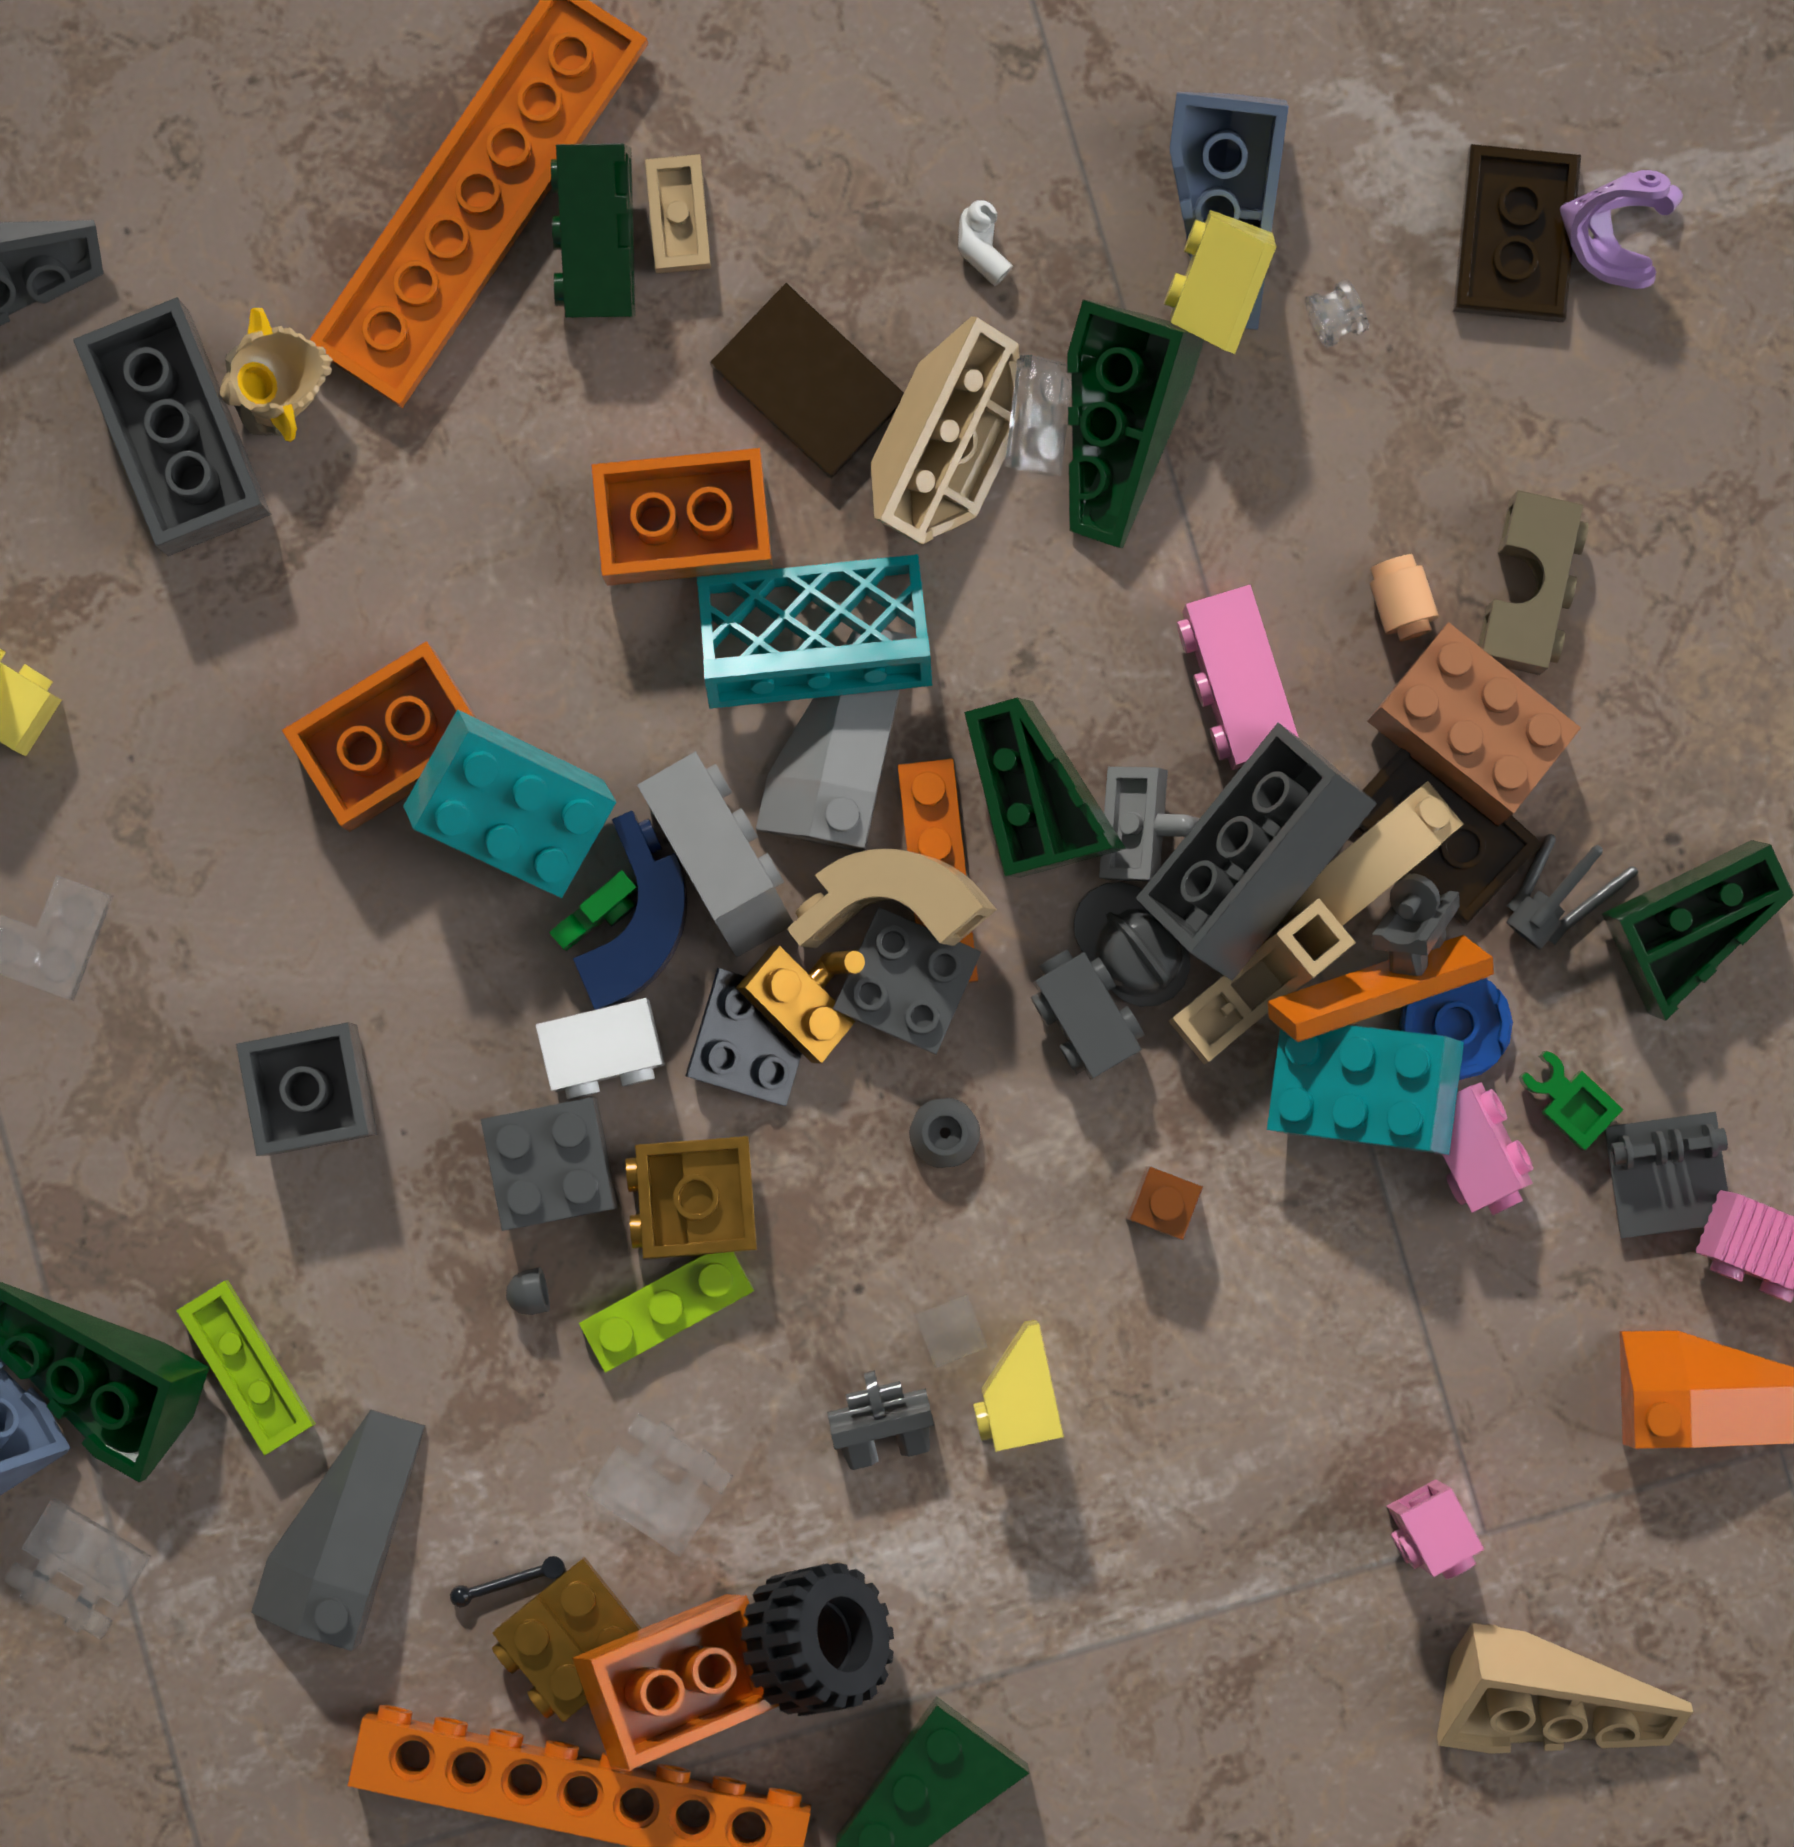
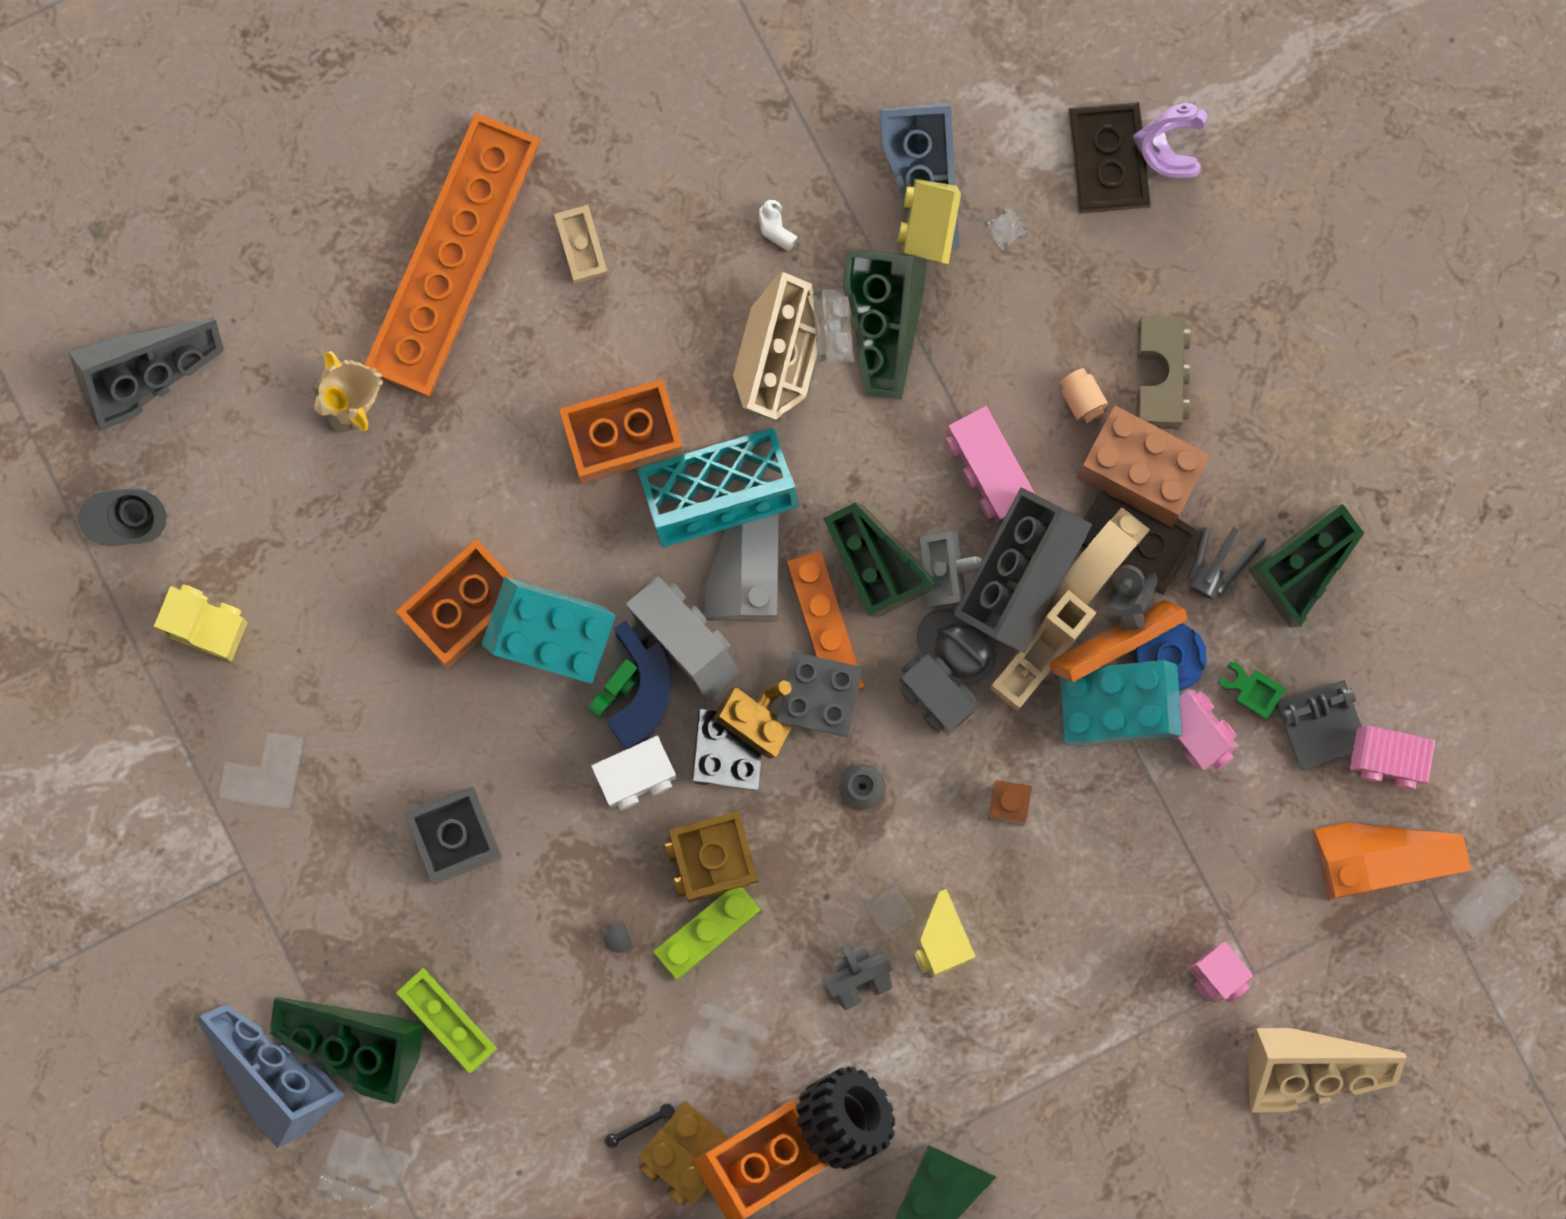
camera: 15 degrees left, 5 degrees down
(172, 427) = (288, 436): dark grey brick -> none
(335, 1549) = (526, 1124): dark grey wedge -> none
(549, 1163) = (616, 853): dark grey brick -> none
(594, 230) = (531, 264): dark green wedge -> none
(808, 380) = (683, 332): dark brown tile -> none
(931, 888) = (795, 629): tan arch -> none

